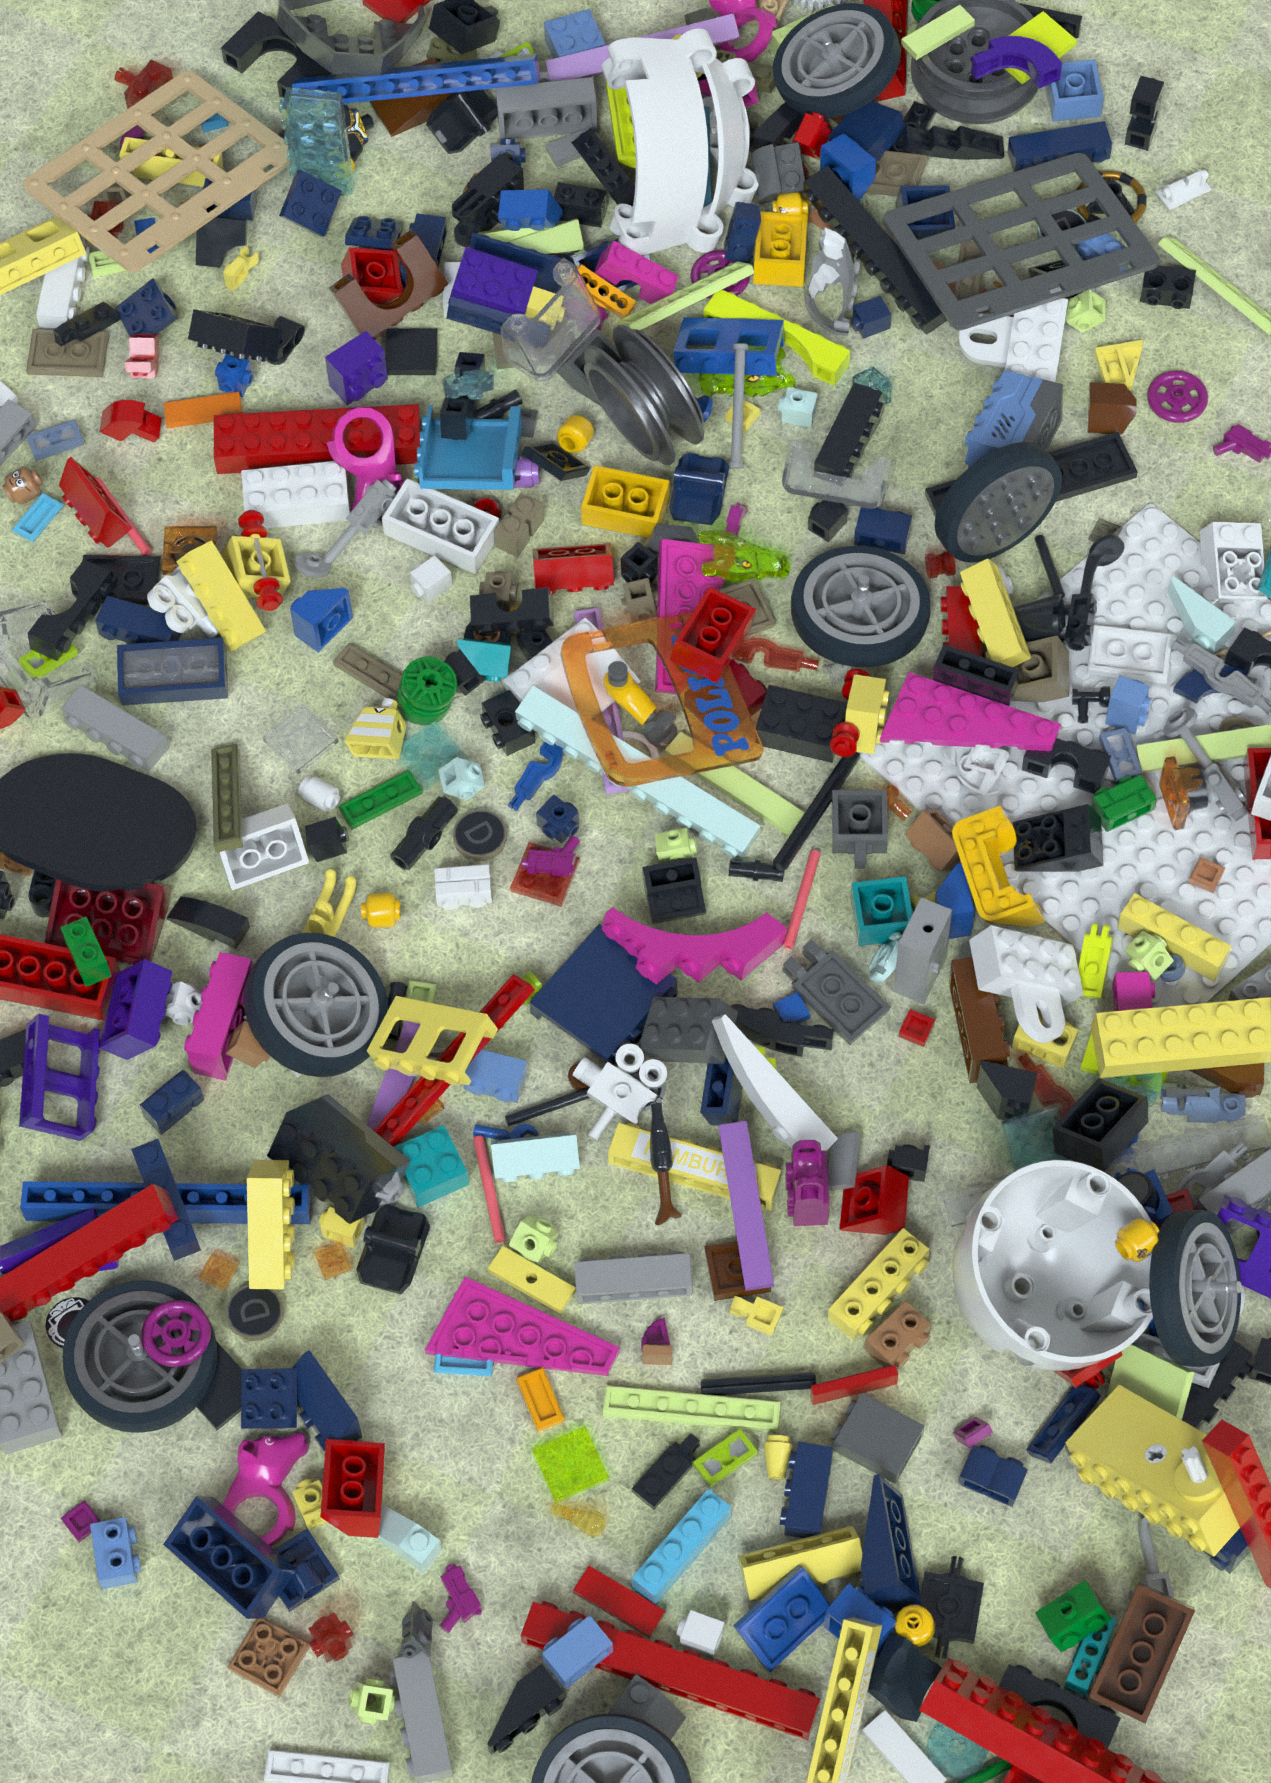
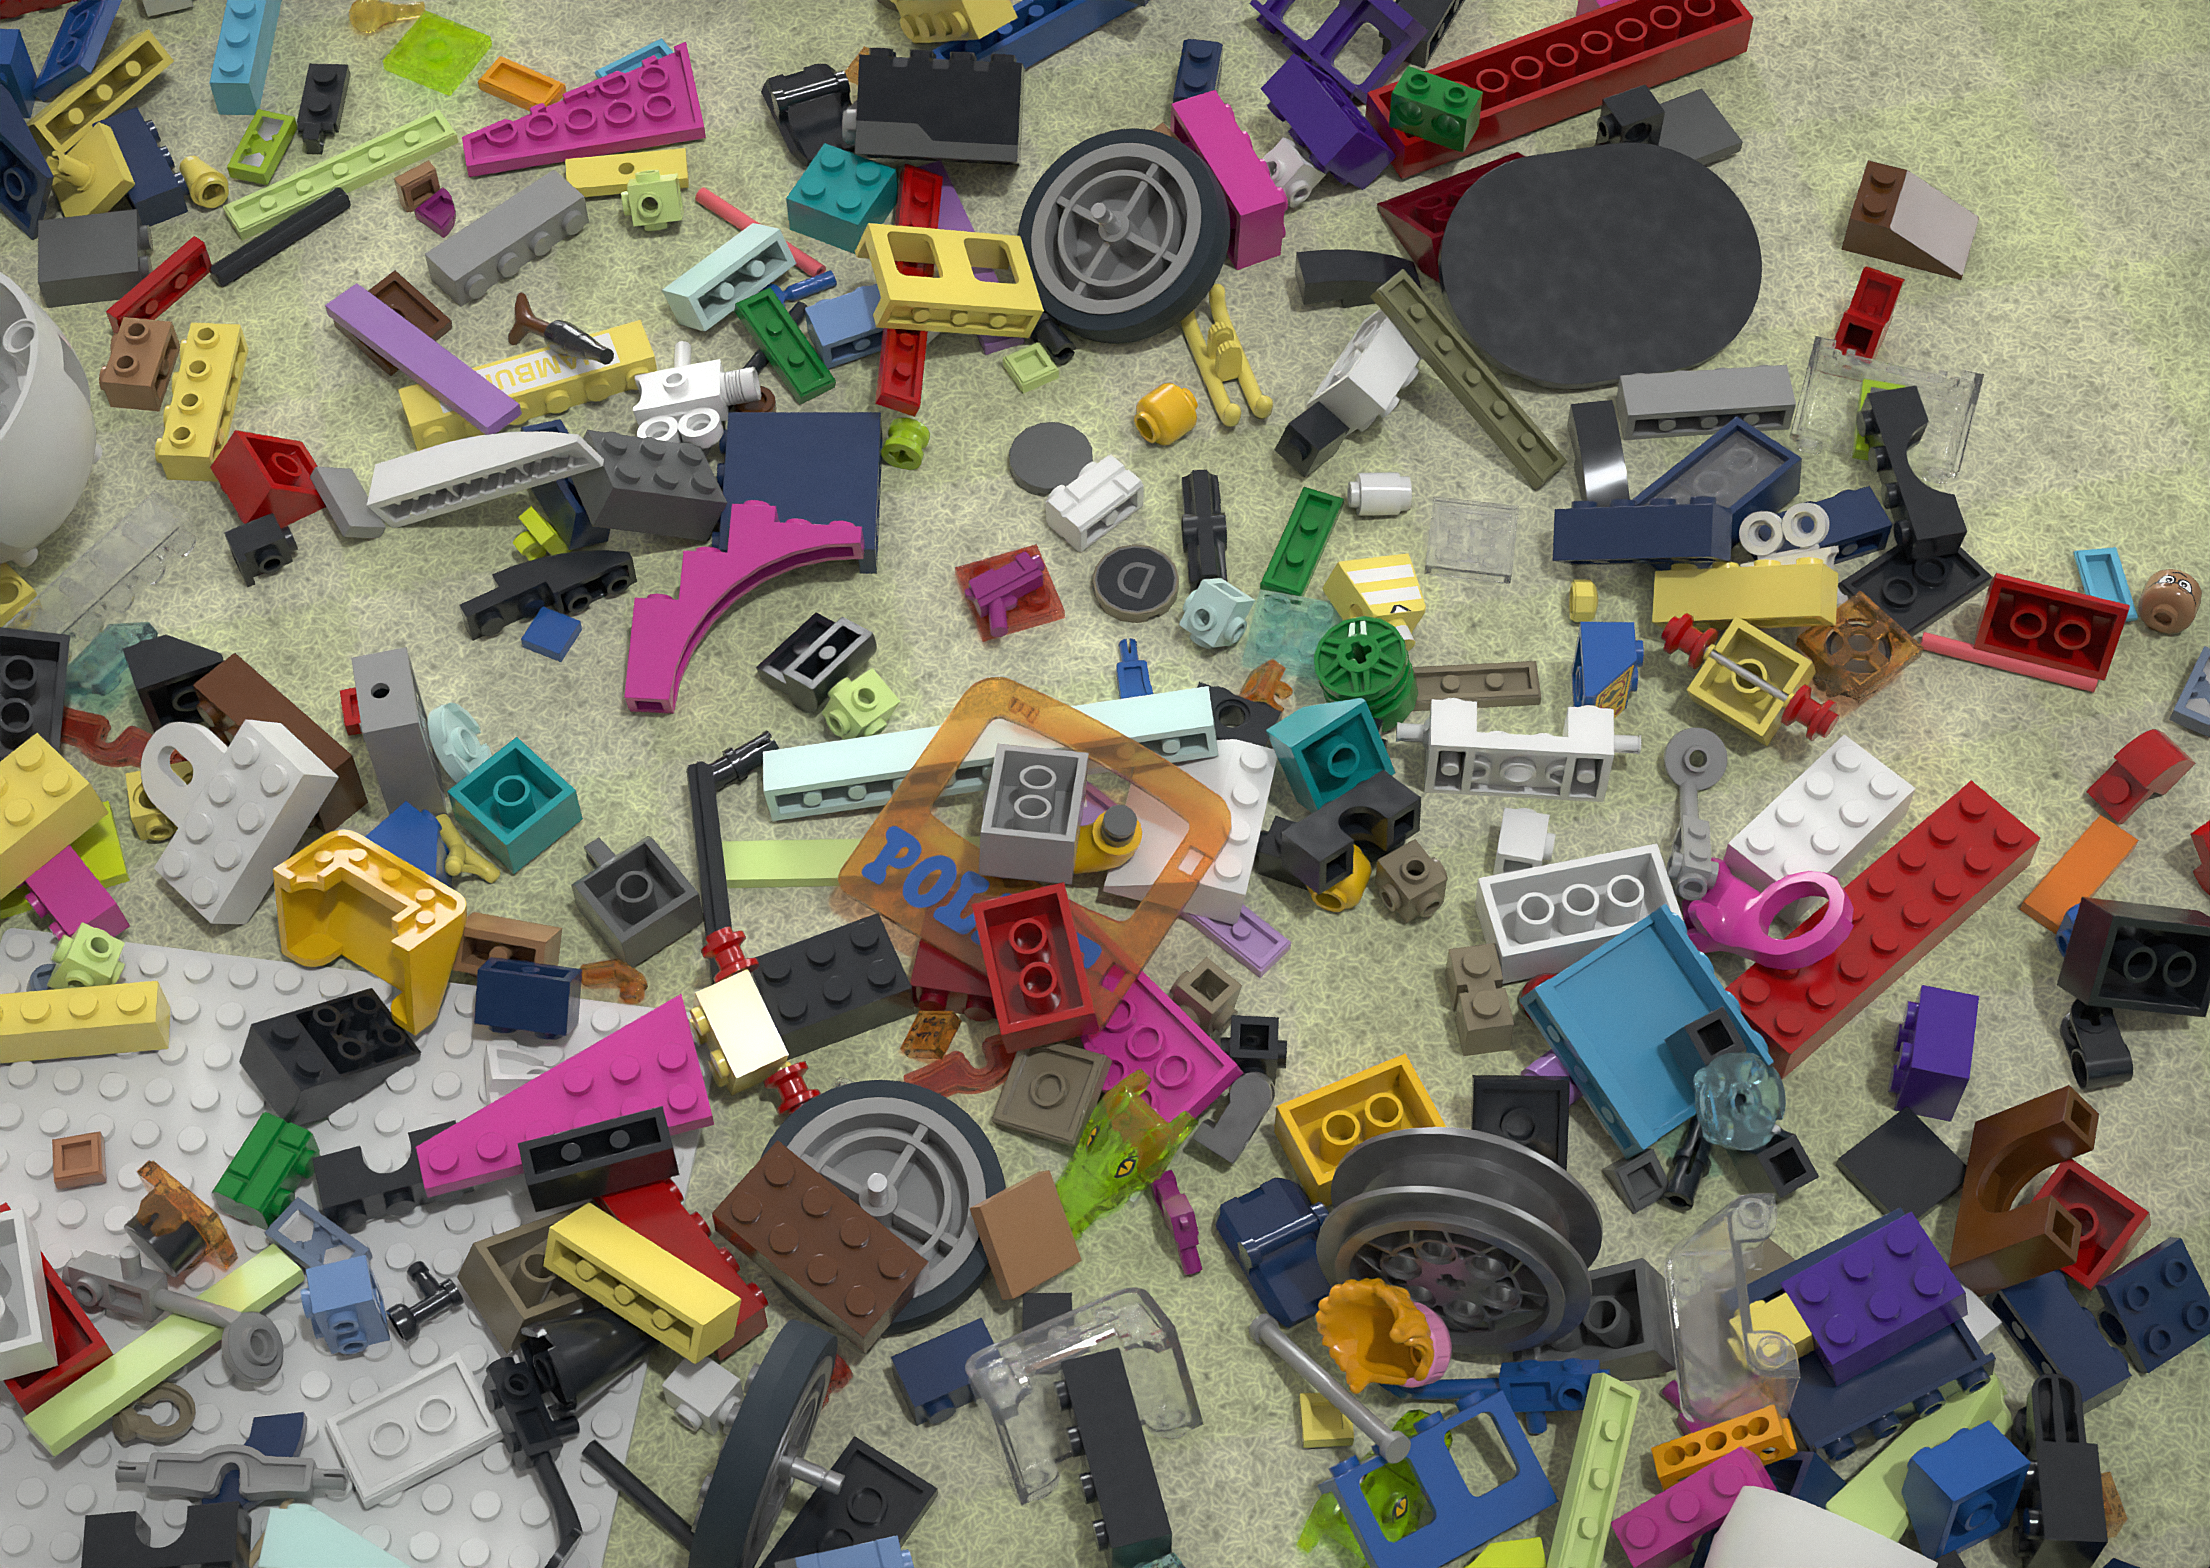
camera: 140 degrees right, 5 degrees down
(200, 731) = (1597, 452): none -> black slope
(234, 656) = (1643, 533): none -> dark blue brick
(282, 672) = (1583, 600): none -> light yellow tile
(373, 588) = (1517, 764): none -> white brick
(459, 933) = (1048, 456): none -> dark grey tile
(475, 733) = (1265, 682): none -> clear orange tile
(539, 1094) = (785, 346): none -> green tile
(558, 819) = (1046, 647): dark blue brick -> none
(574, 567) = (1351, 997): red slope -> none
(652, 702) = (1033, 814): none -> light grey brick
(711, 399) = (1382, 1335): none -> light orange hair
(761, 1315) = (323, 288): light yellow plate -> none
(772, 674) = (931, 1034): none -> clear orange tile
(798, 407) = (1250, 1490): light aqua brick -> none
(801, 899) = (647, 776): coral piece -> none
(807, 1184) = (354, 411): magenta brick -> none
(809, 547) = (1025, 1234): none -> medium nougat tile
(836, 992) = (514, 685): dark grey tile -> none
(844, 1493) = (90, 174): none -> light yellow tile
(905, 584) = (821, 1246): none -> reddish brown brick
(946, 797) = (528, 997): none -> dark blue brick
(1095, 961) = (168, 928): neon yellow hinge -> none

